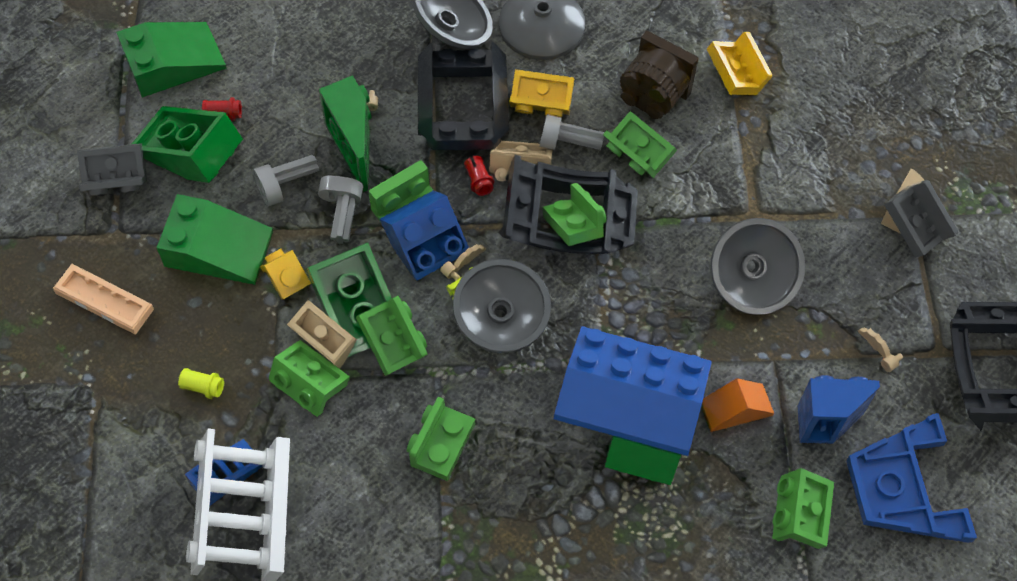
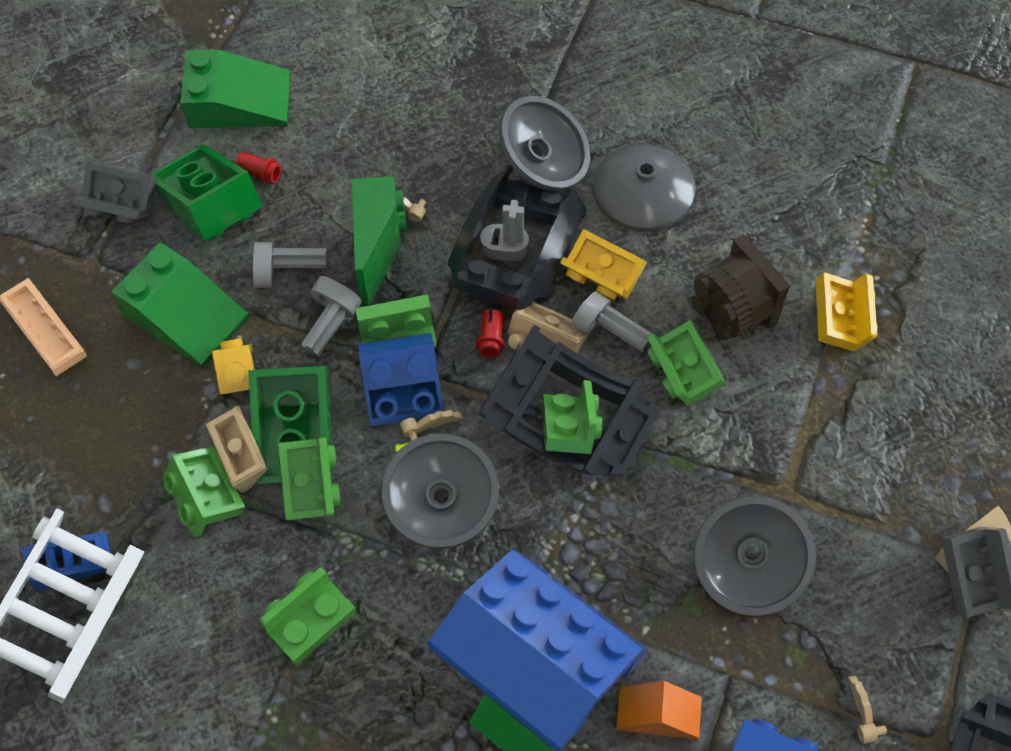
camera: 25 degrees right, 0 degrees up
(202, 383) = (98, 459): neon yellow pin -> none
(459, 95) = (513, 239): none -> light grey piece

